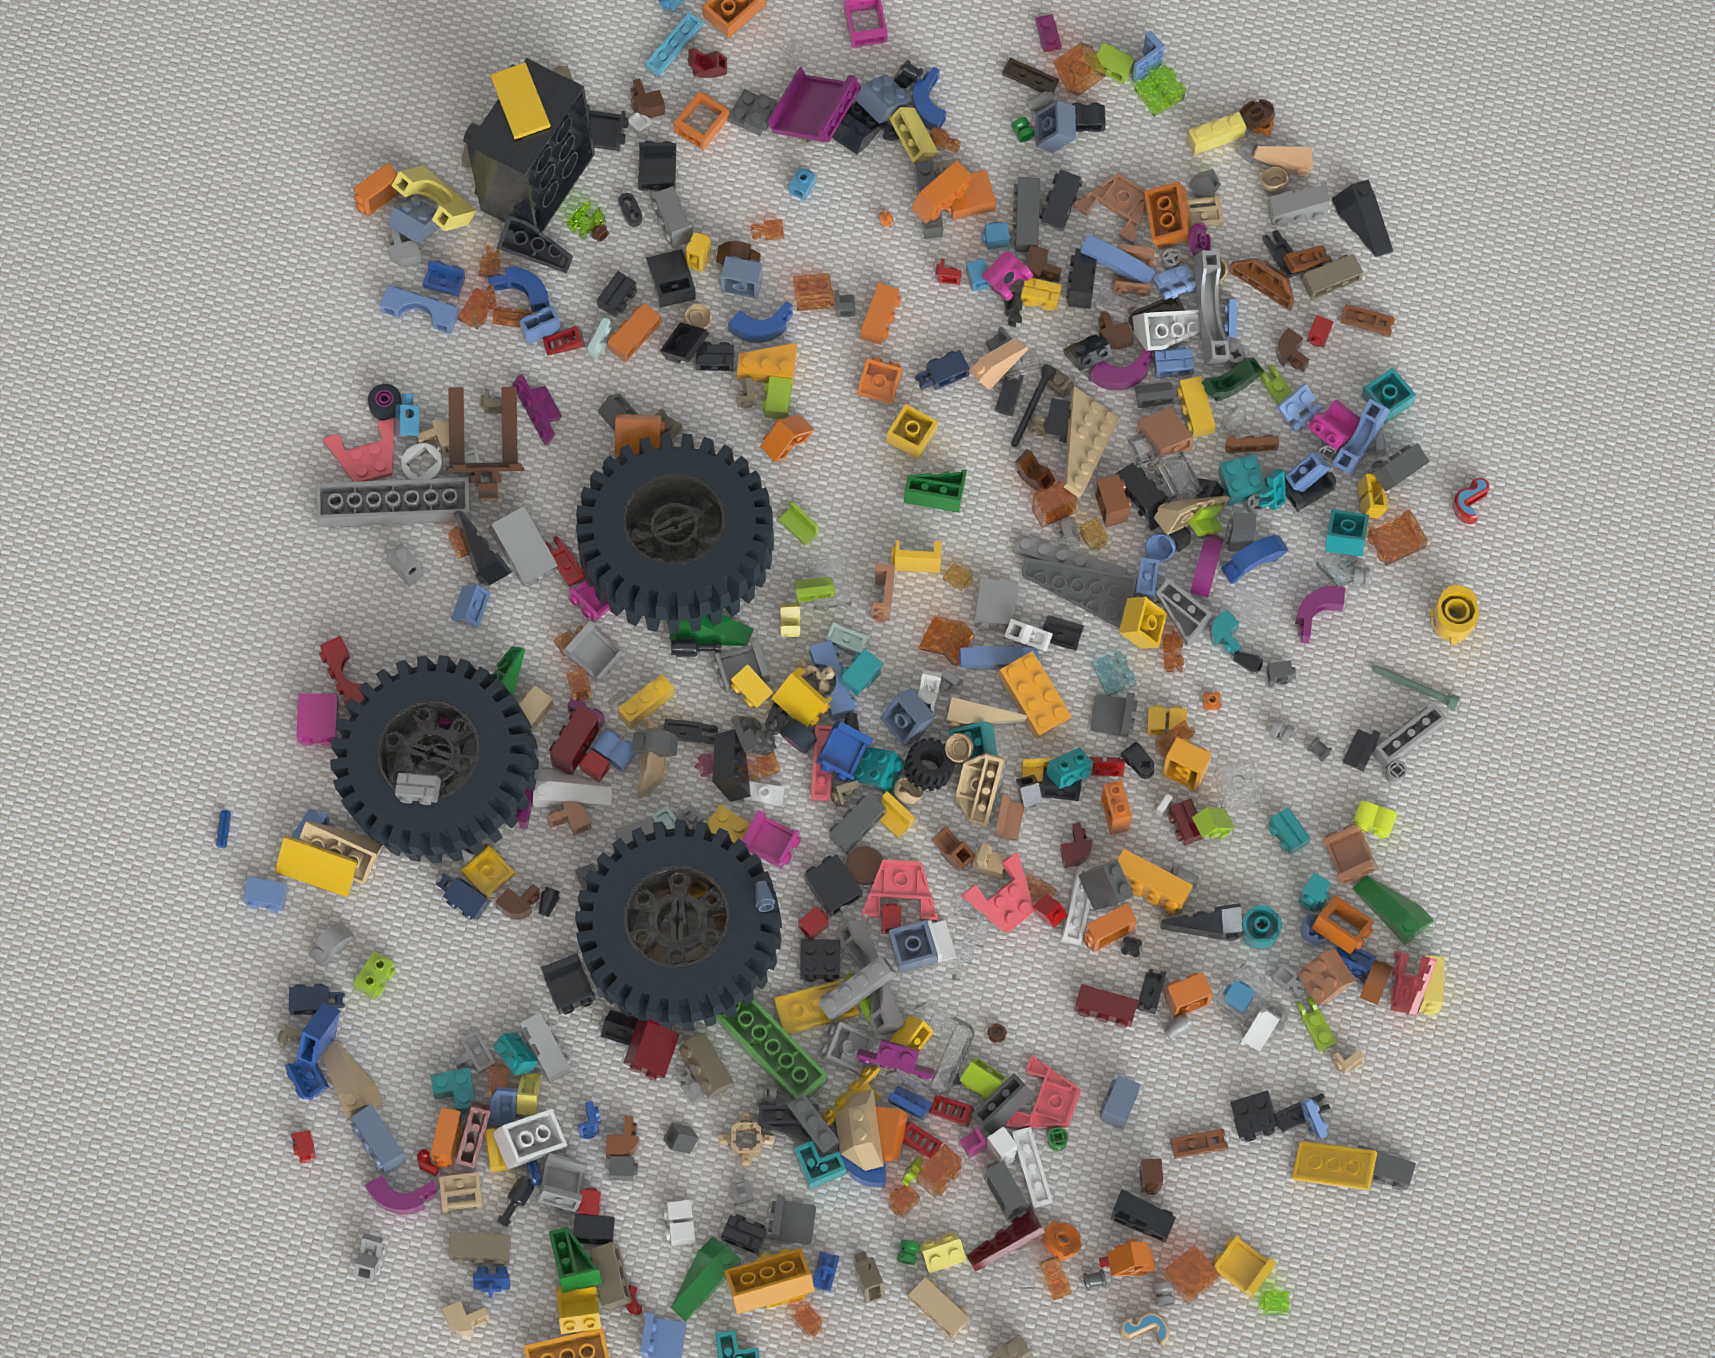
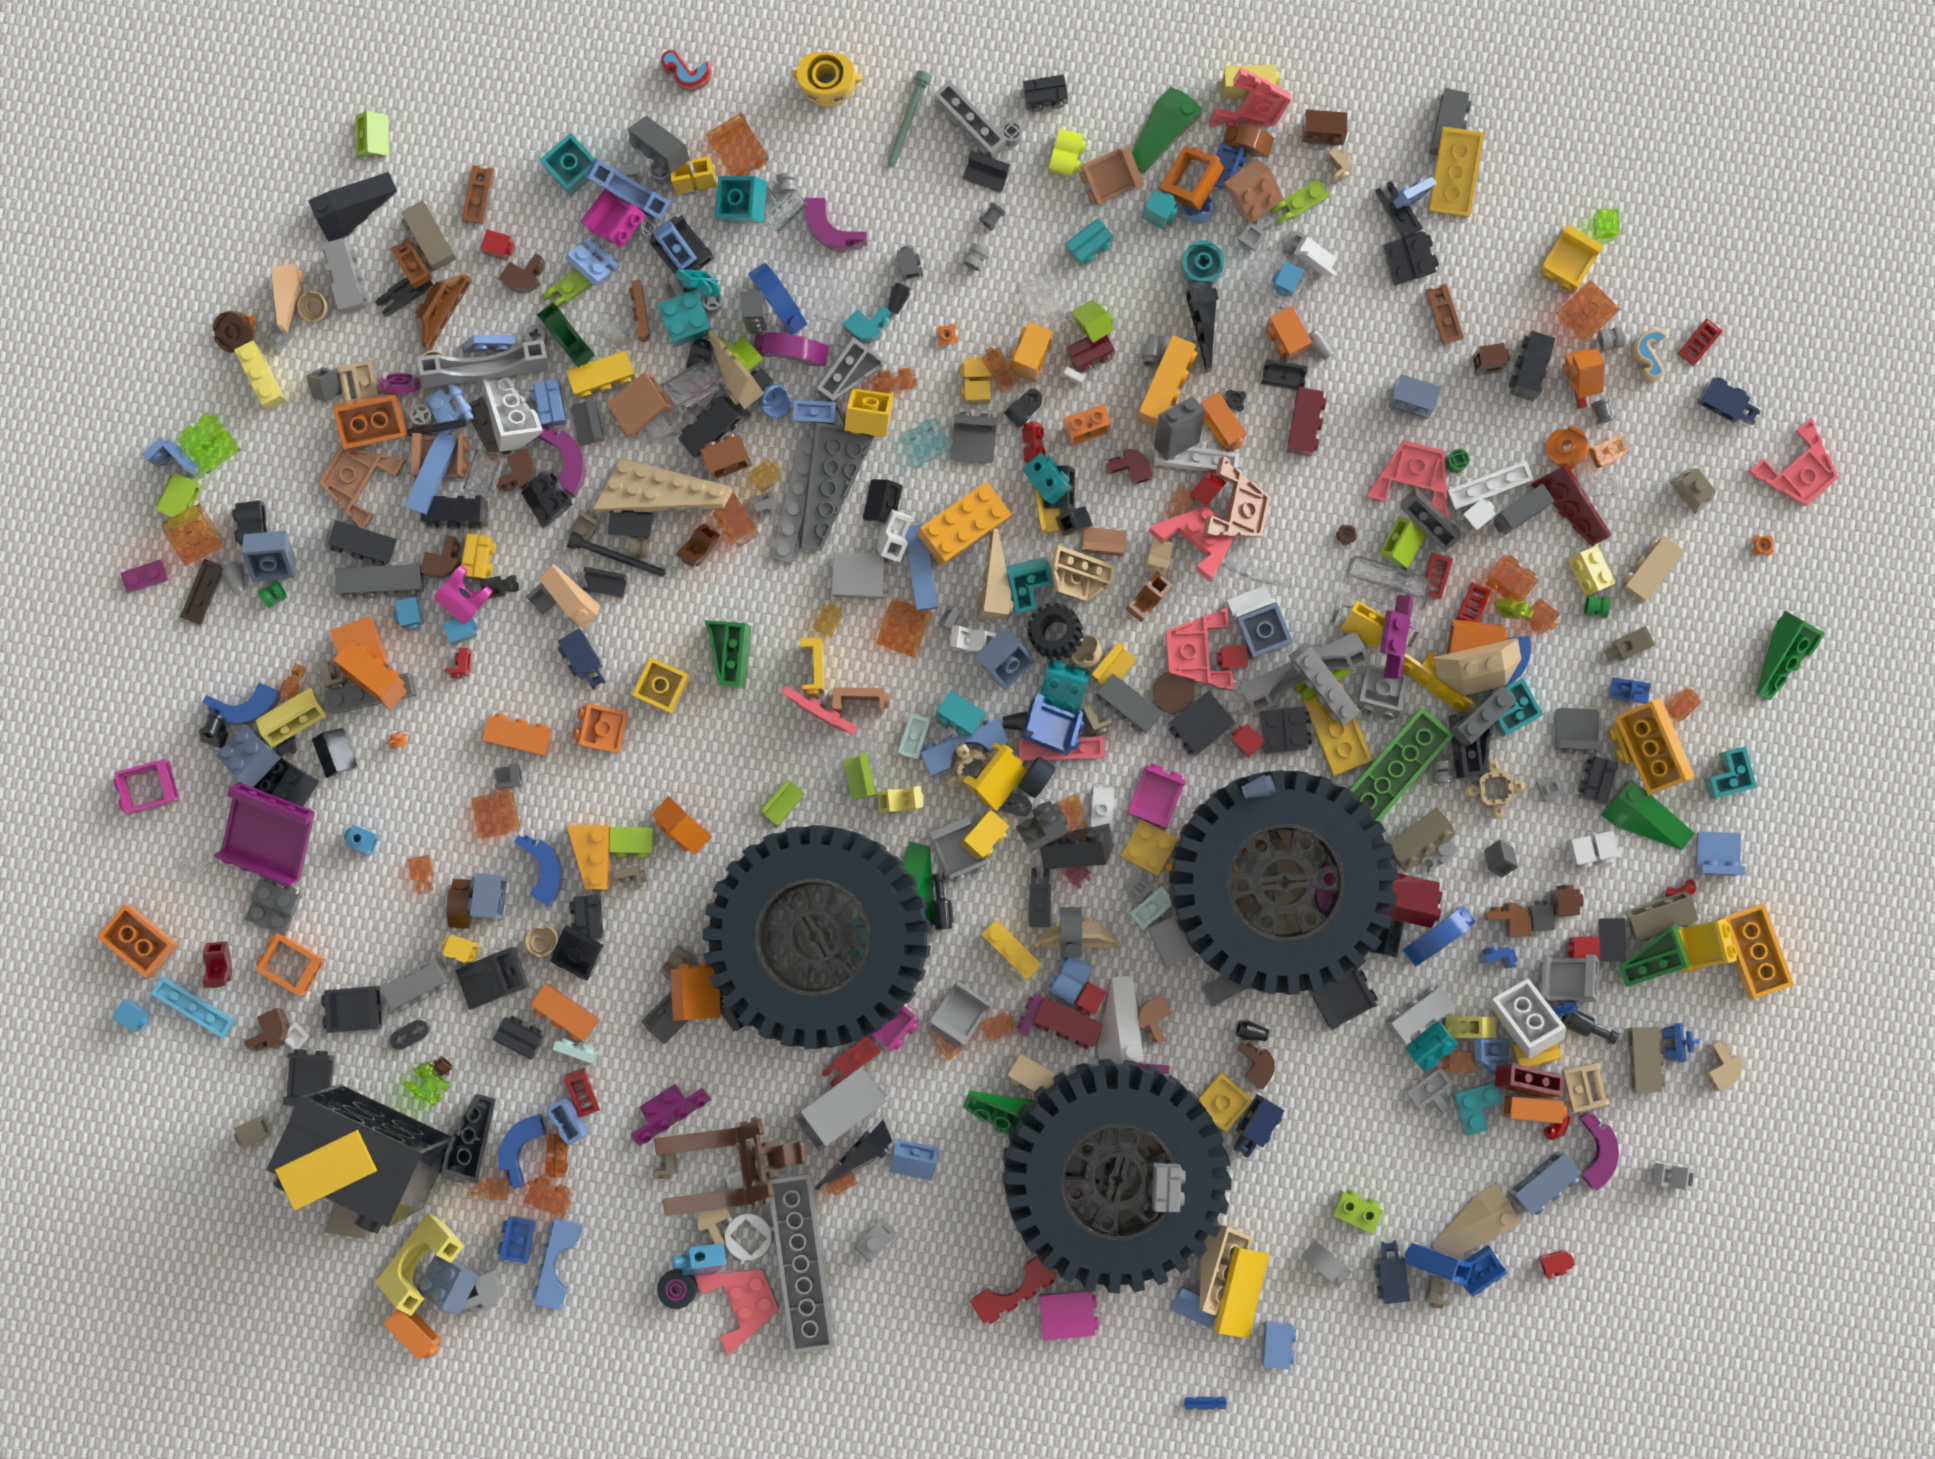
camera: 90 degrees left, 15 degrees up
(617, 1074) = (1439, 936): none -> blue arch
(634, 1187) = (1566, 900): none -> reddish brown brick
(865, 569) = (815, 708): none -> coral wing
(881, 169) = (334, 752): none -> panel
(910, 1102) = (1436, 618): blue bracket -> none
(959, 747) = (1040, 597): tan hair -> none
(973, 1143) = (1471, 548): dark pink panel -> none
(1026, 942) = (1246, 508): none -> wing
(1158, 269) = (437, 427): none -> black bar
(1384, 1050) = (1324, 127): none -> reddish brown brick
(1427, 239) = (371, 134): none -> panel
(1433, 806) = (1045, 93): none -> black brick

